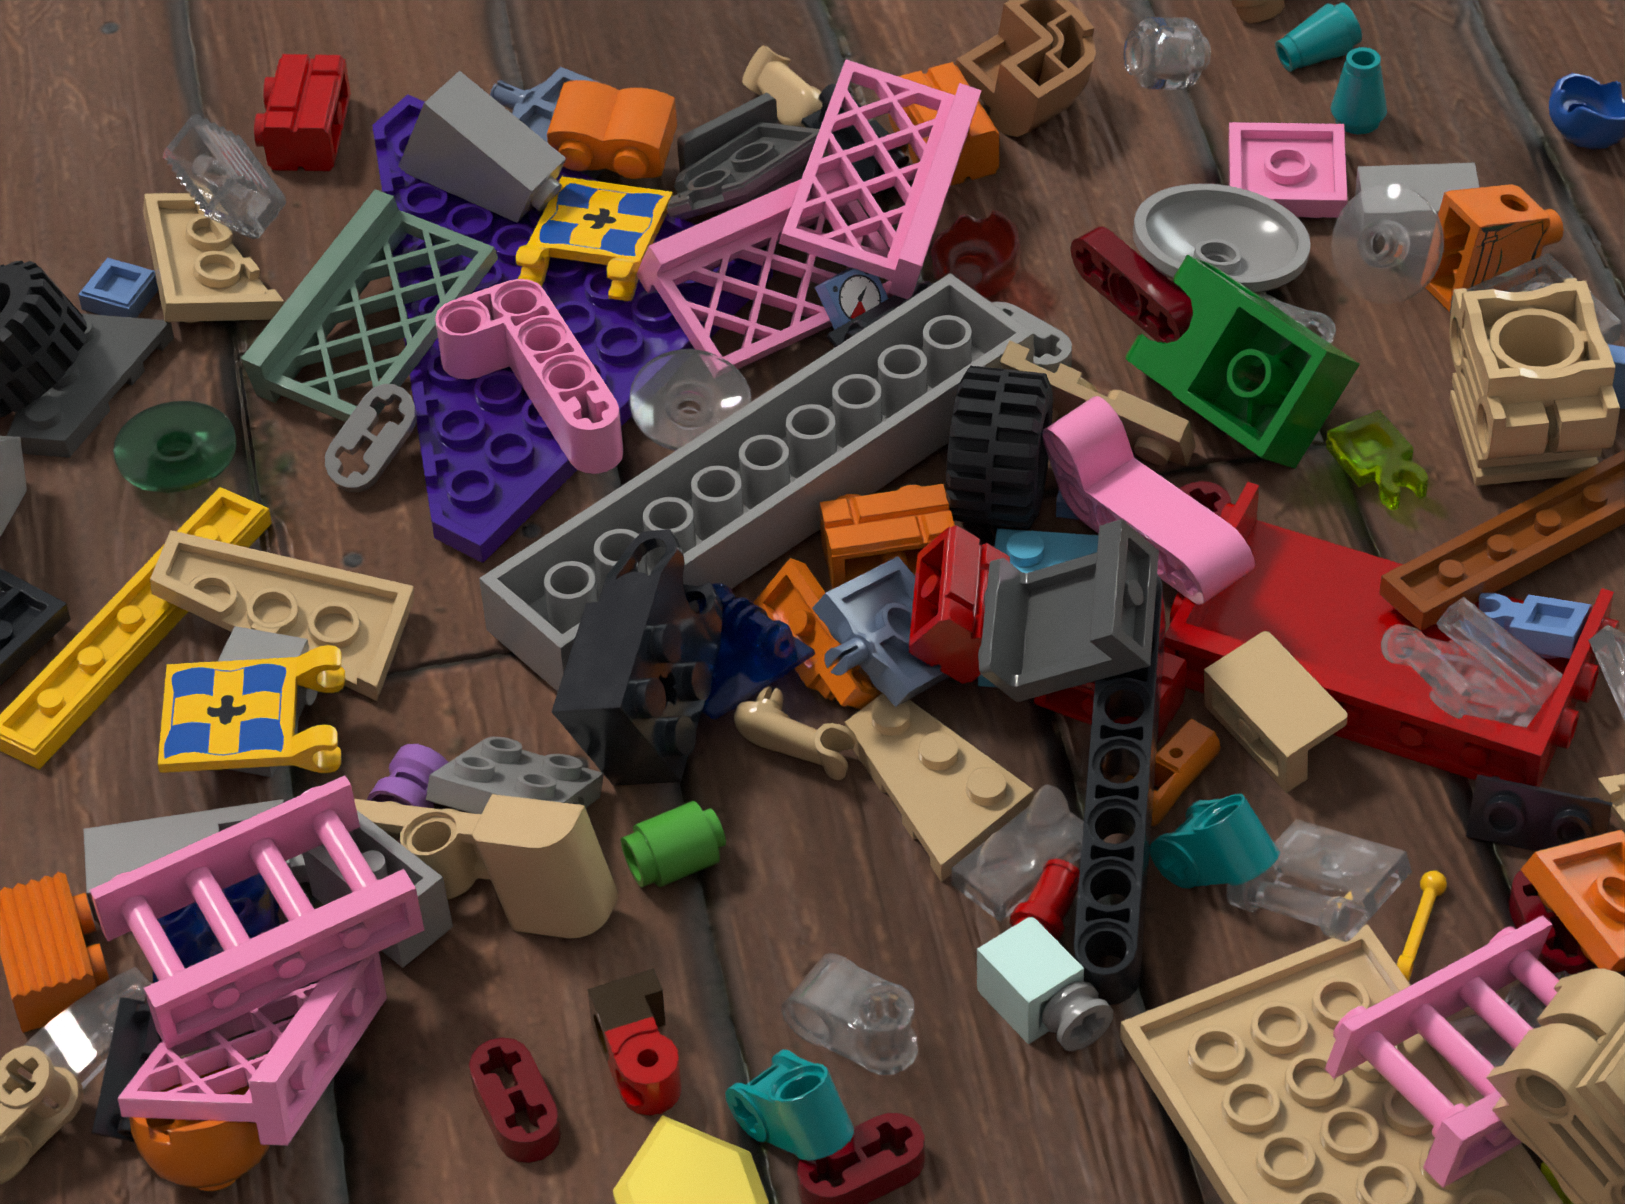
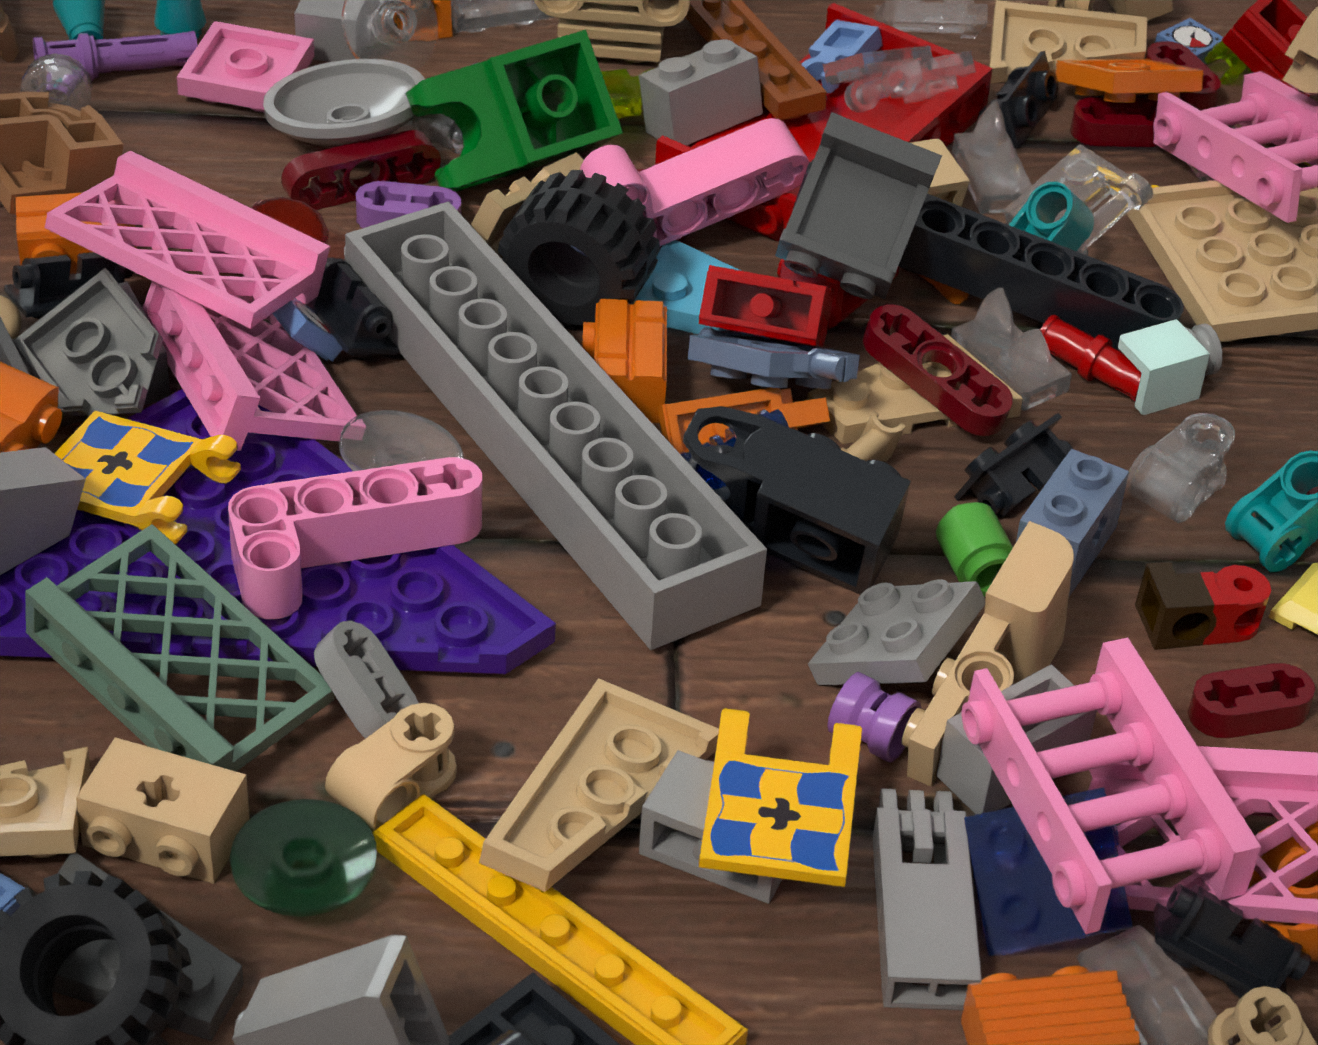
camera: 85 degrees left, 5 degrees down
(208, 352) = (162, 810): none -> tan brick
(288, 483) = (395, 765): none -> tan piece
(724, 912) = (1081, 505): none -> sand blue brick
(845, 880) = (999, 477): none -> black hinge
(931, 798) = (906, 342): none -> dark red beam
(1107, 339) = (388, 200): none -> medium lavender beam
(1250, 62) = (122, 53): none -> medium lavender pin
(1375, 508) = (701, 92): none -> light grey brick
(1394, 804) = (991, 163): none -> clear tile

